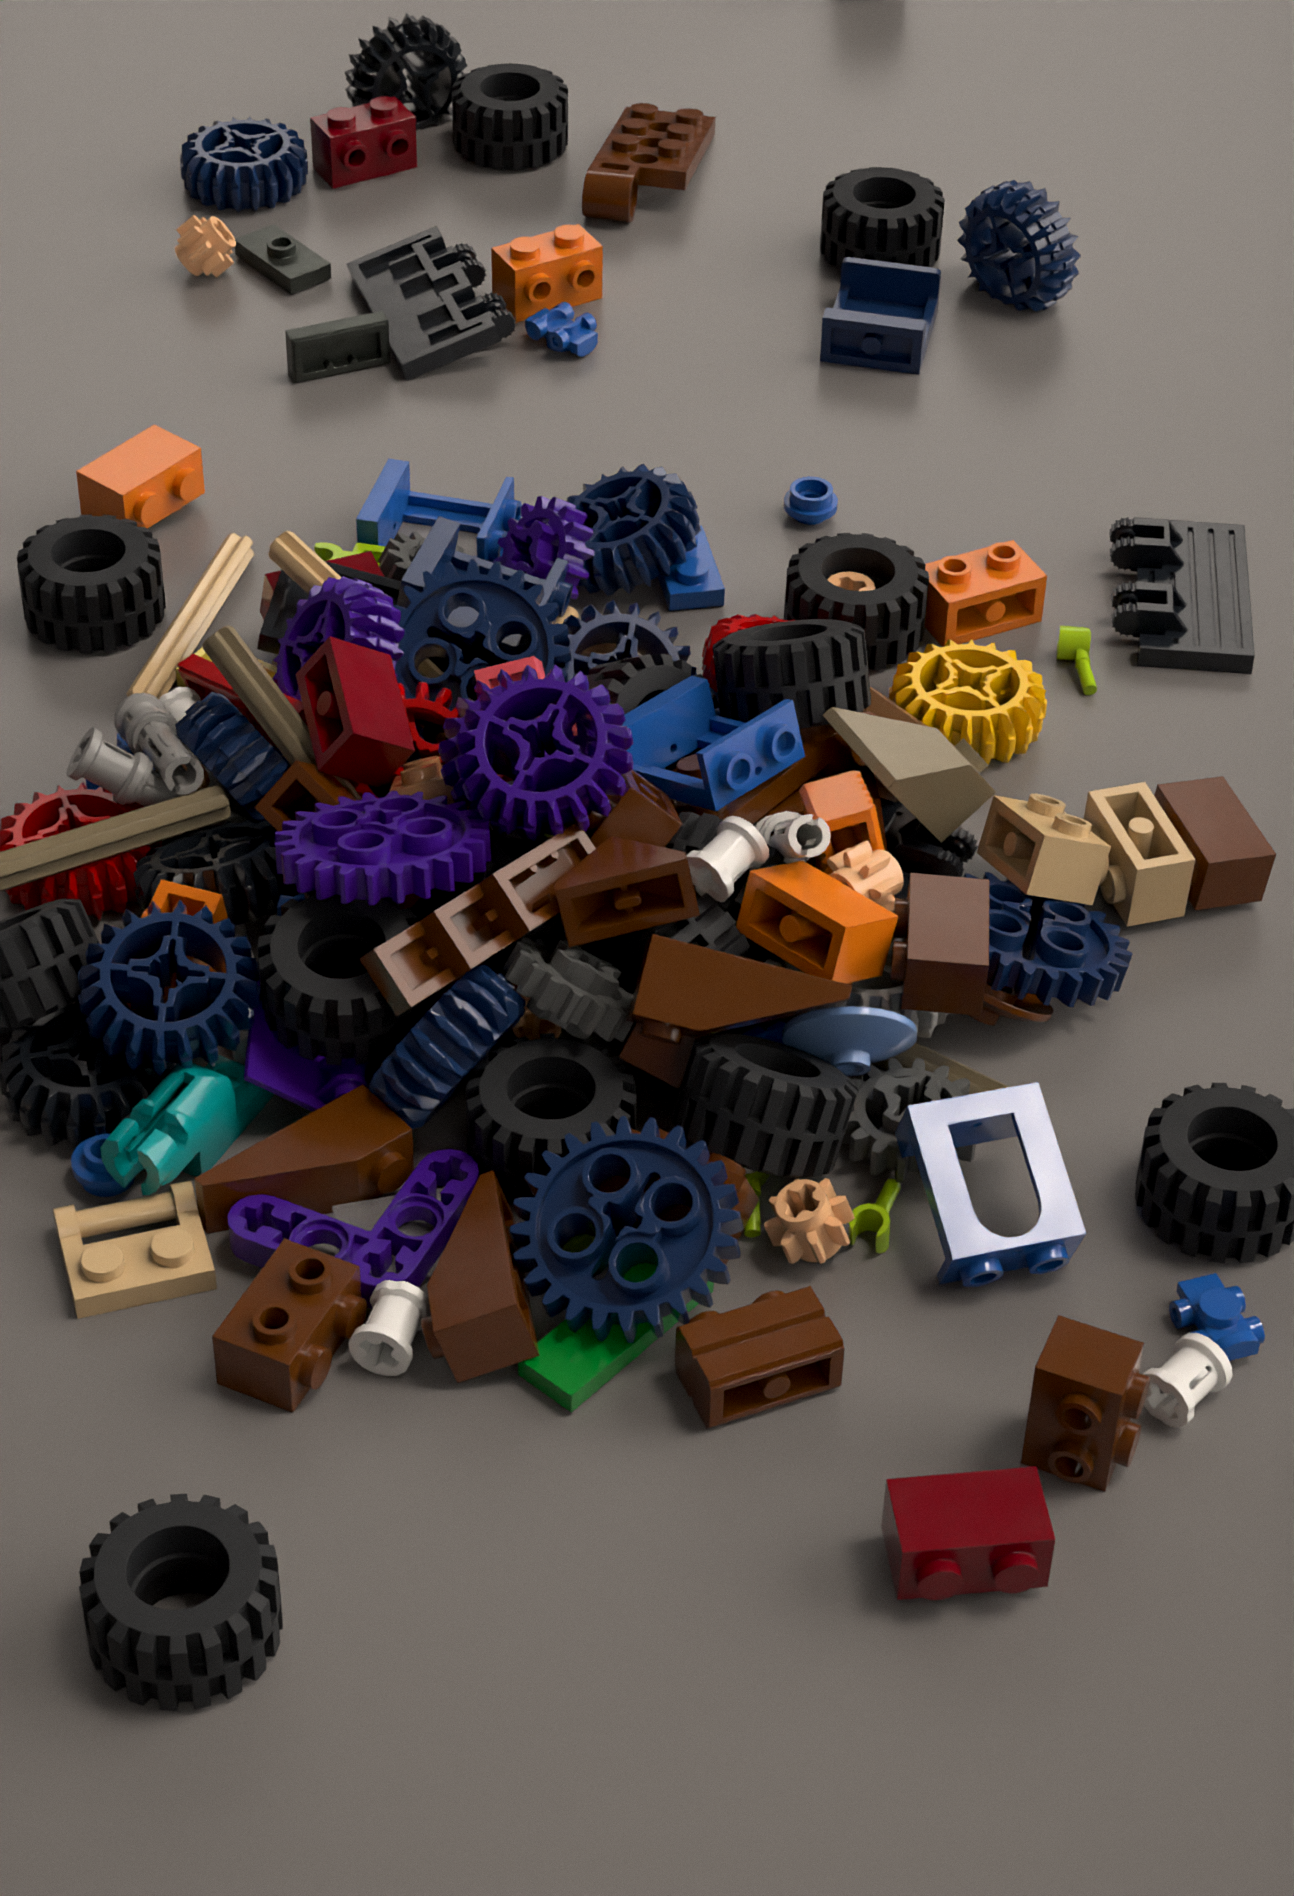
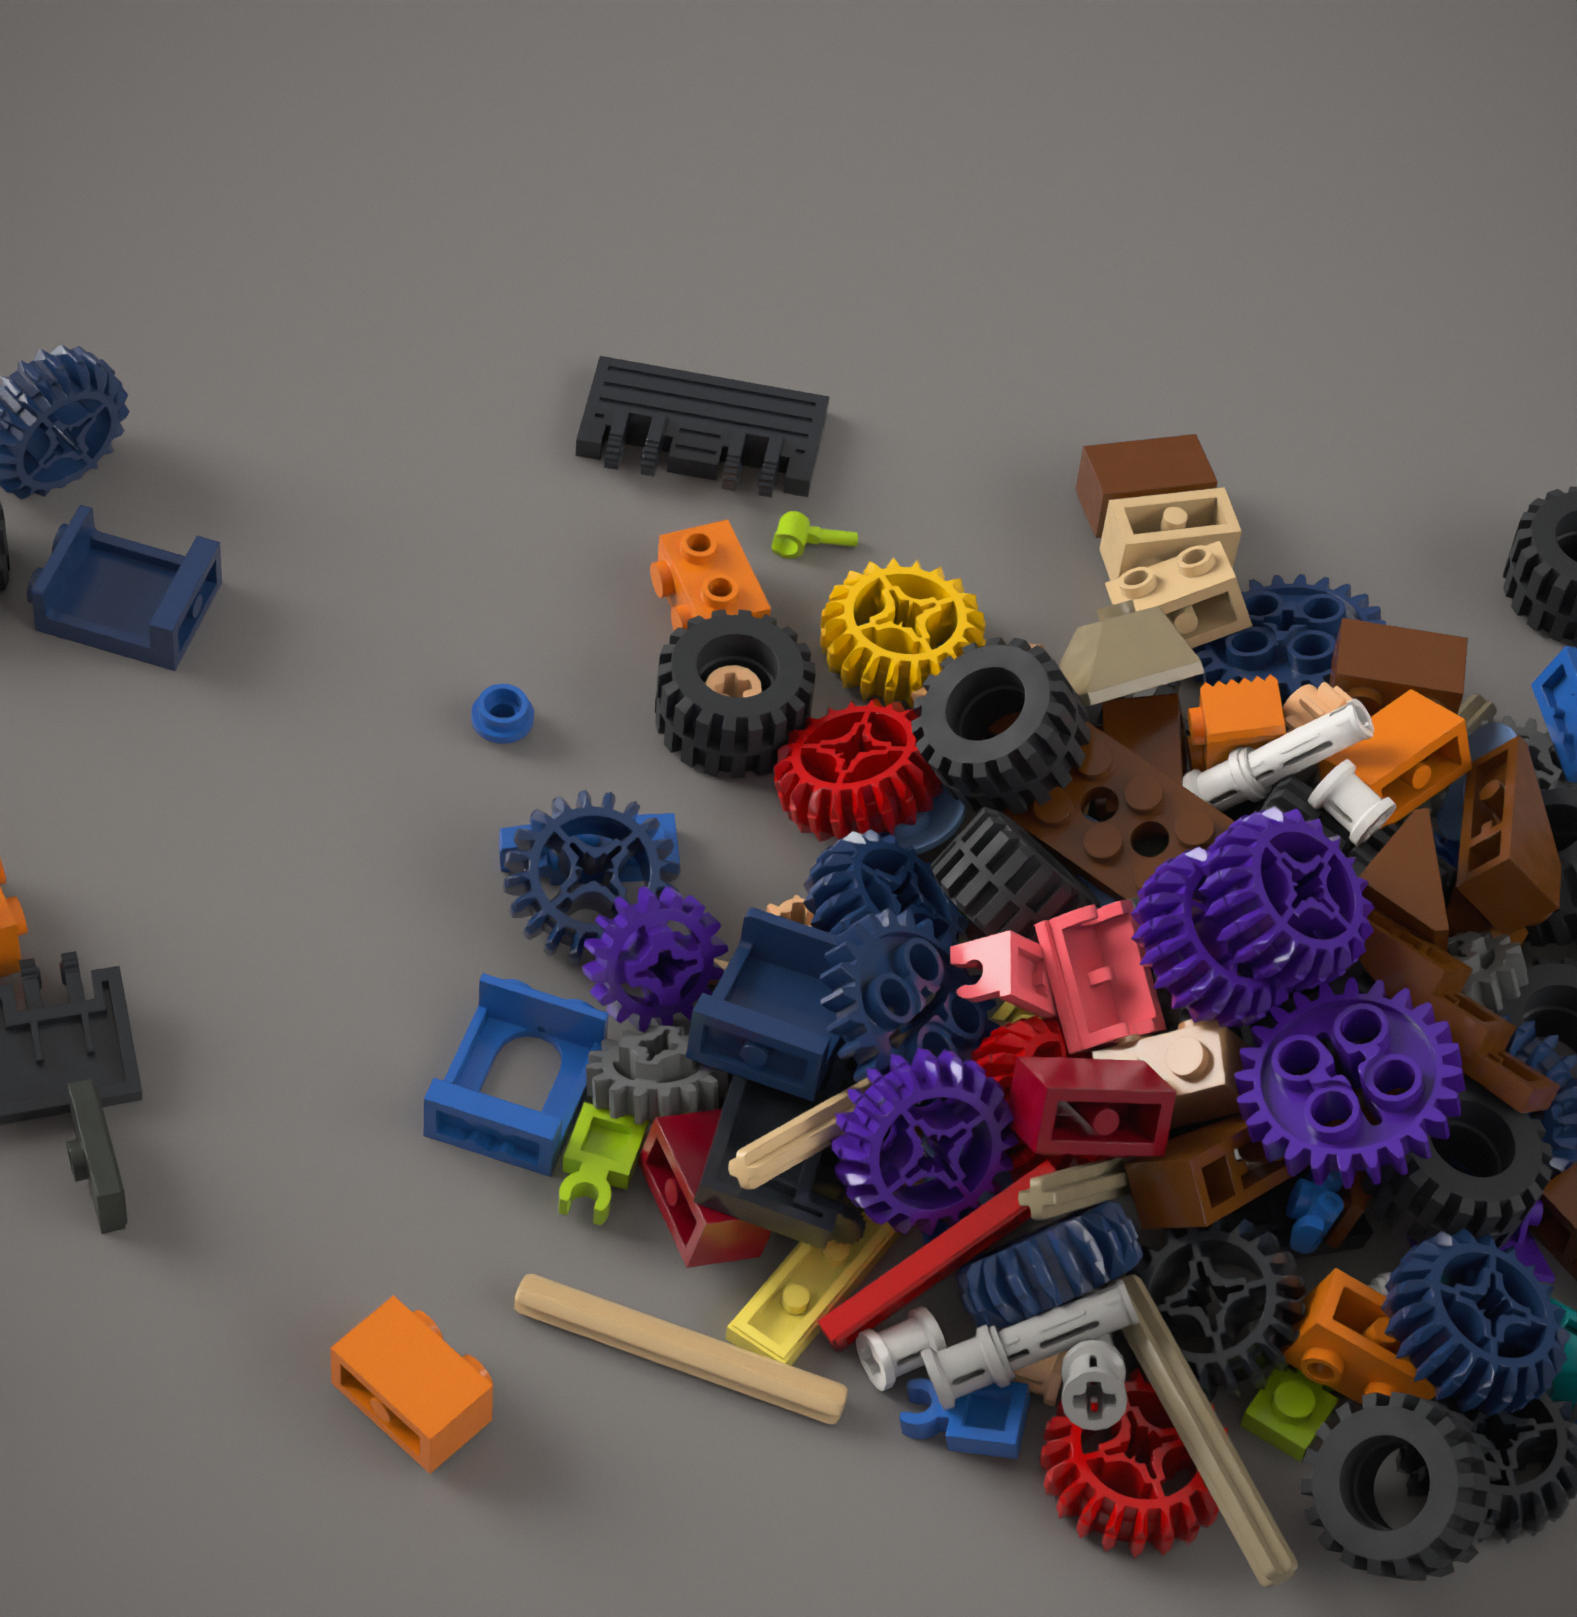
camera: 90 degrees left, 10 degrees up
(91, 583) = (642, 1391): black tyre -> none
(562, 332) = (82, 916): blue piece -> none
(733, 752) = (1145, 750): blue panel -> none

